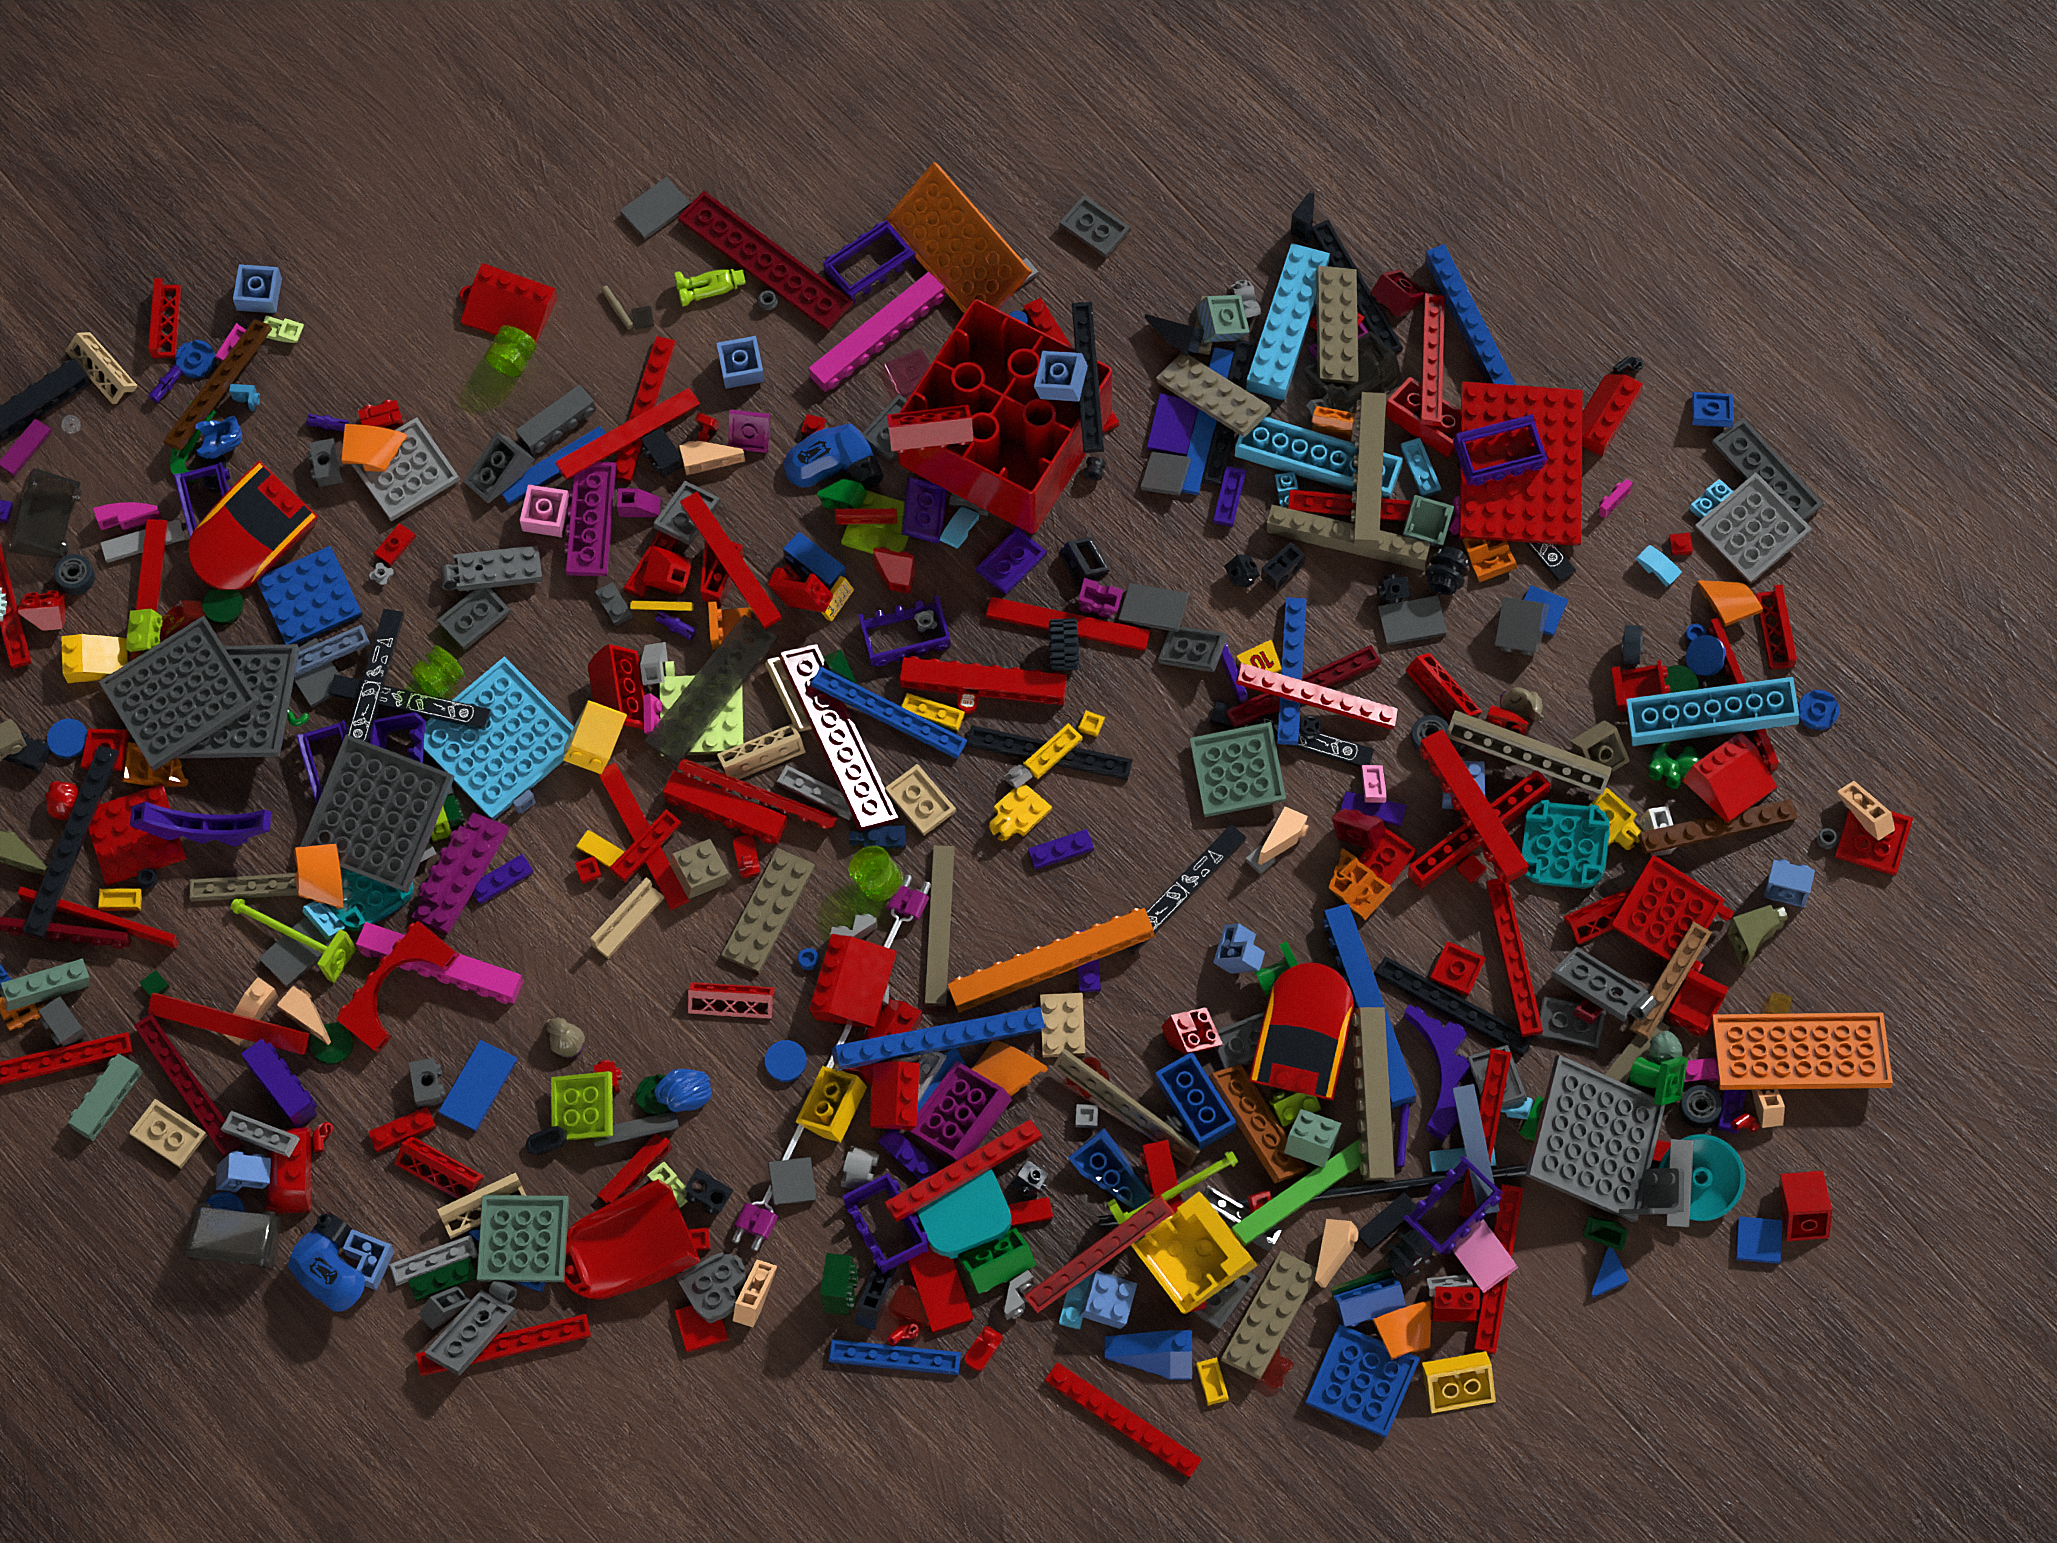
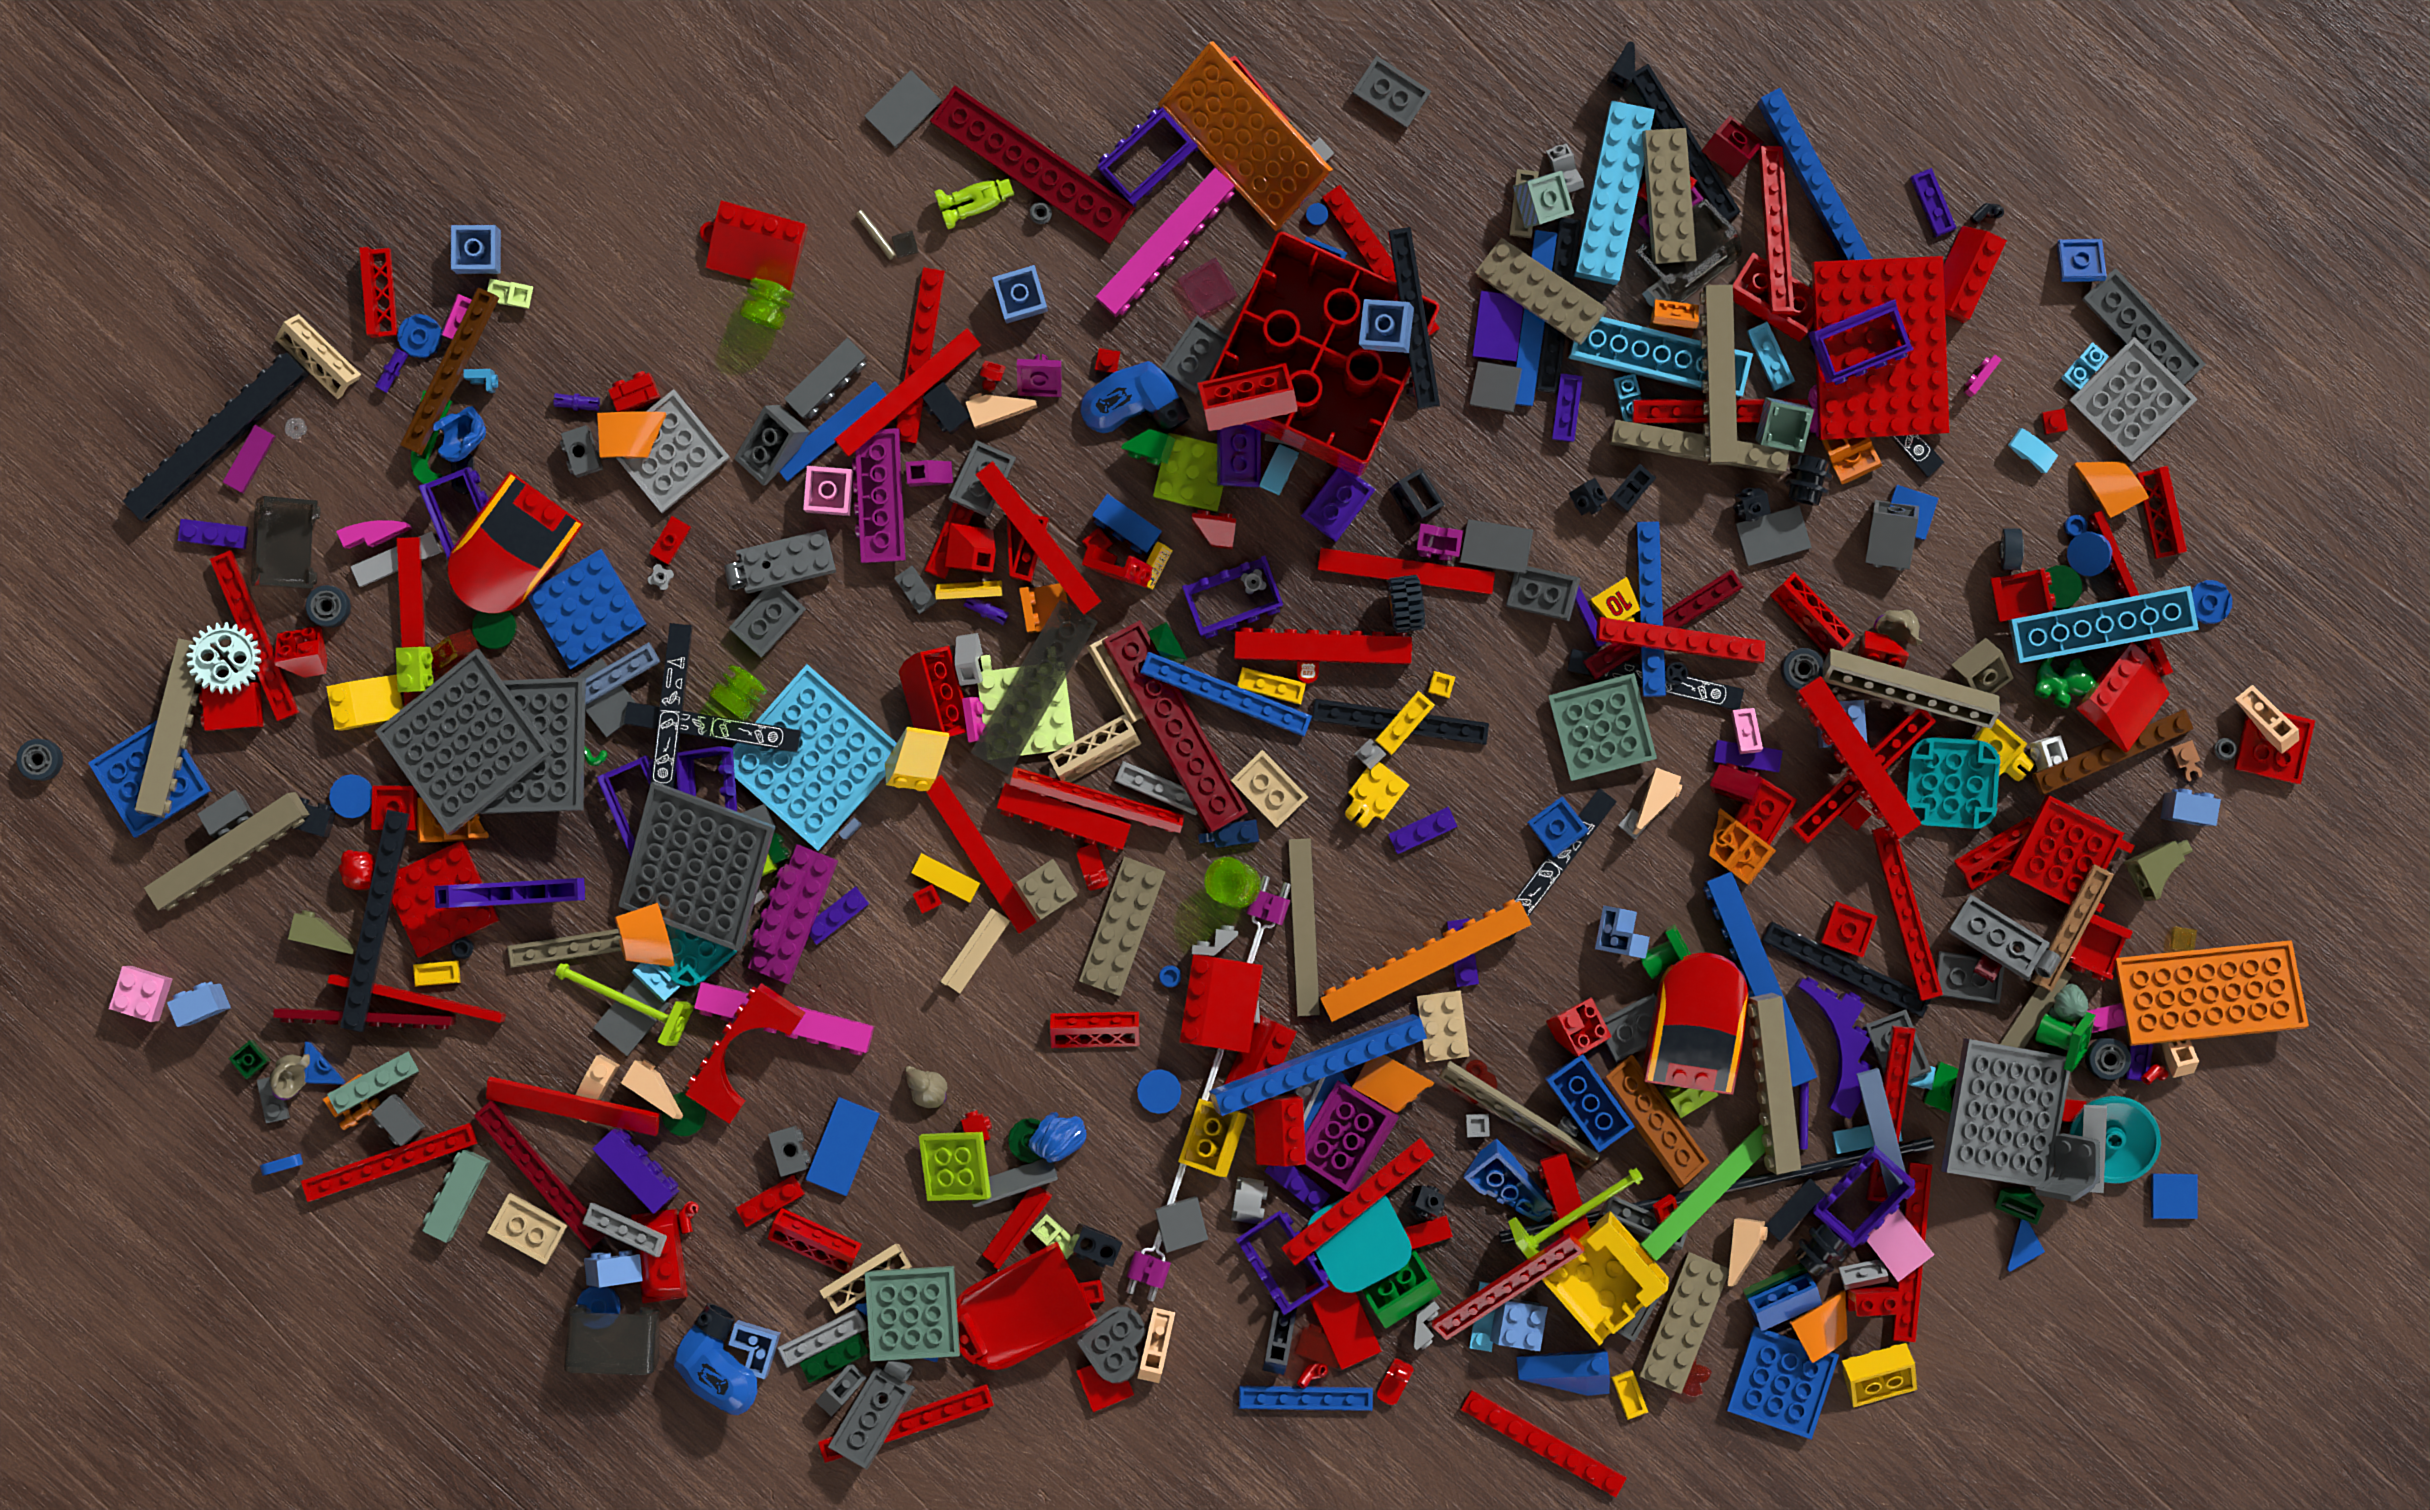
camera: 10 degrees left, 20 degrees up
(154, 983) = (488, 1065): dark green tile -> none
(546, 1140) = (922, 1202): black tile -> none
(645, 846) = (984, 868): red tile -> none
(838, 1284) = (1242, 1344): dark green brick -> none
(866, 516) = (1178, 470): red tile -> none
(1177, 334) = (1493, 220): black slope -> none
(1188, 854) = (1558, 826): none -> blue tile
(1312, 1138) = (1714, 1134): sand green brick -> none
(1580, 354) = (1933, 202): none -> dark purple tile
(1790, 843) = (2186, 756): none -> nougat plate
(1805, 1205) = (2221, 1157): red slope -> none

